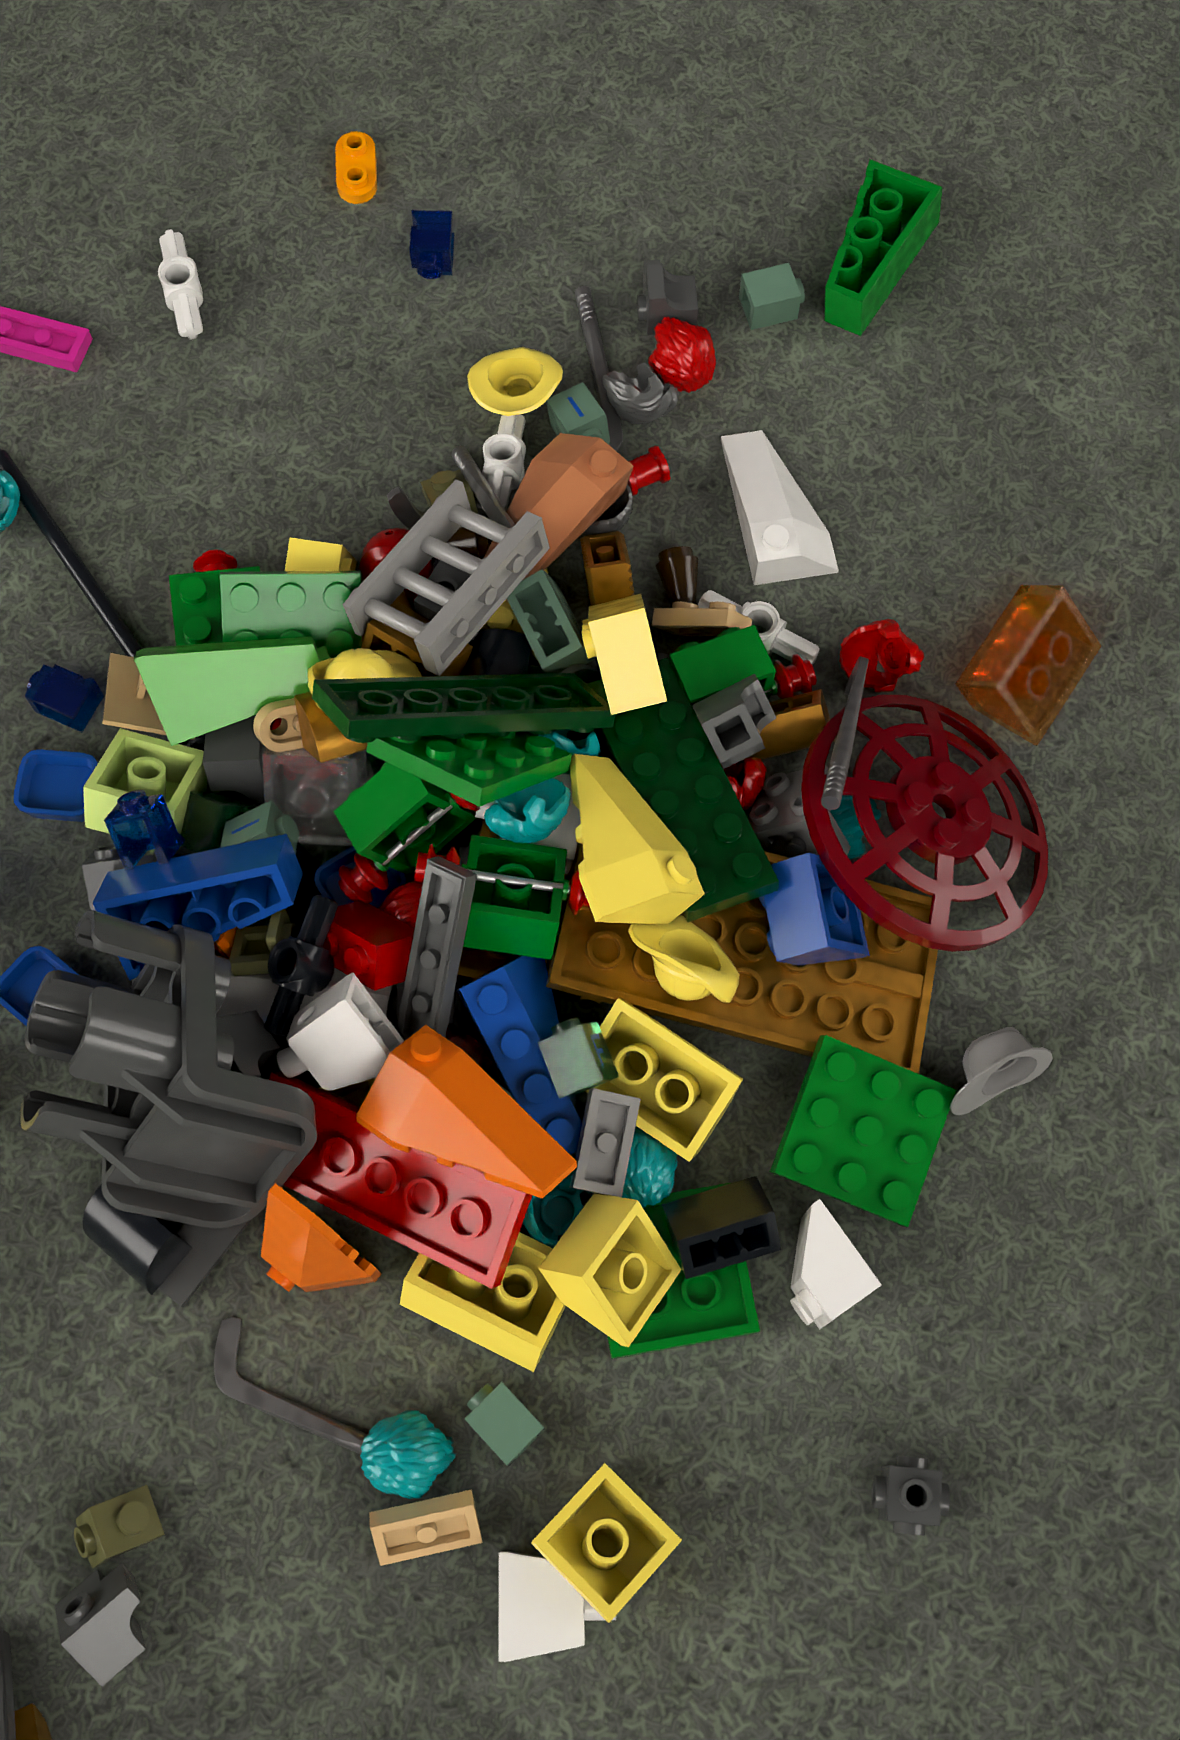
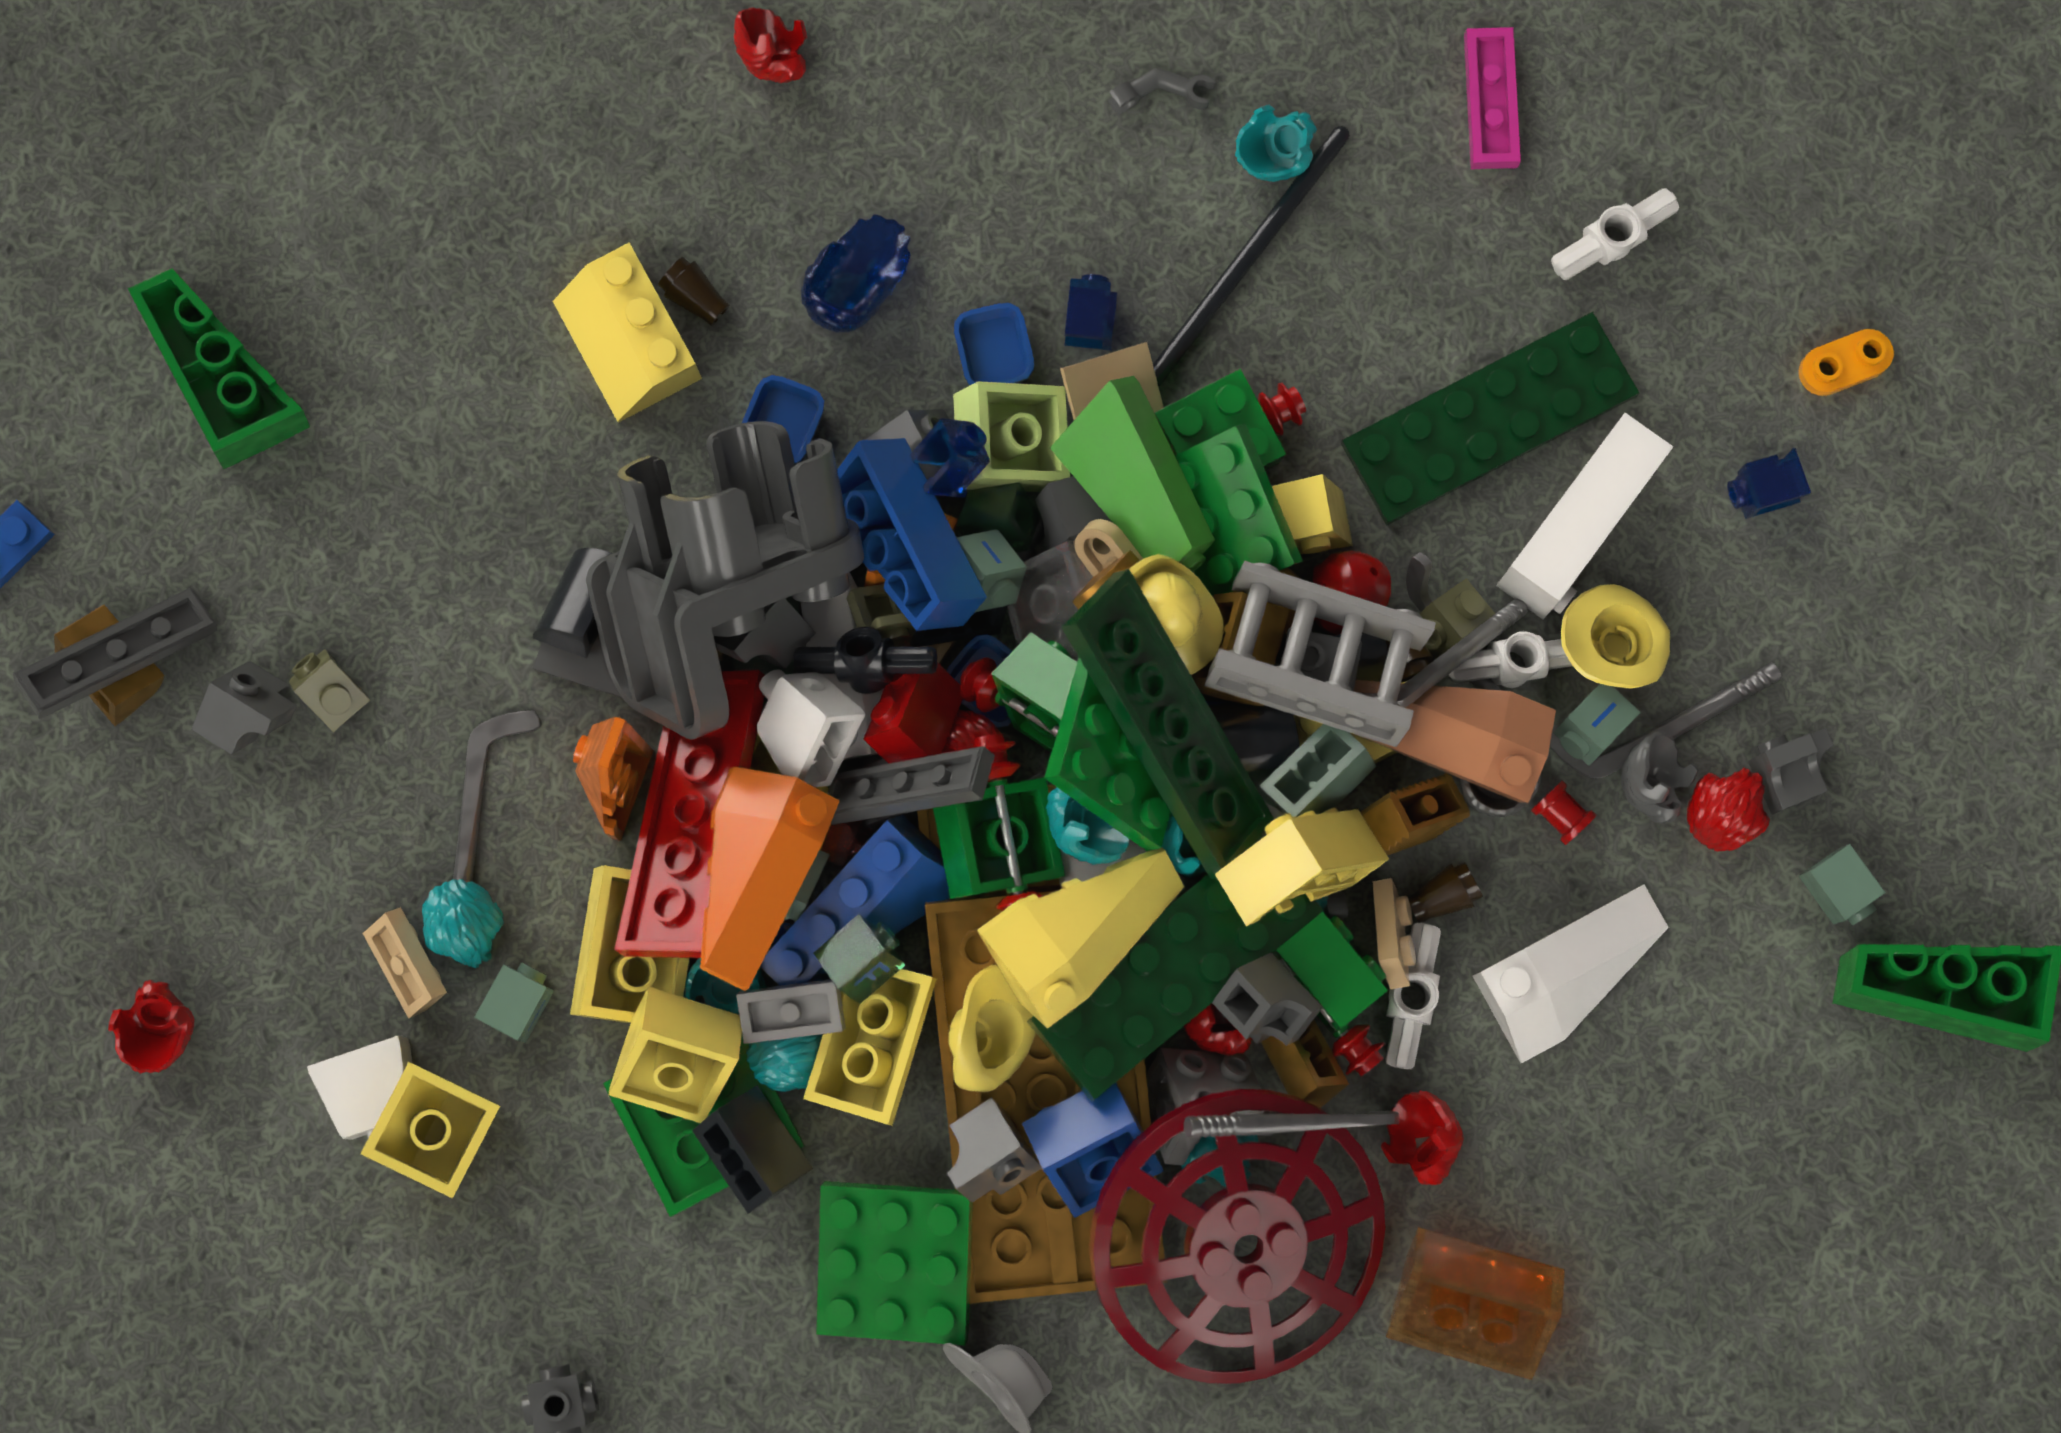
camera: 75 degrees right, 10 degrees up
(293, 426) = (1489, 418): none -> dark green plate
(406, 369) = (1584, 517): none -> white brick
(793, 994) = (990, 1152): none -> brick
(827, 1269) = (737, 1266): white slope -> none

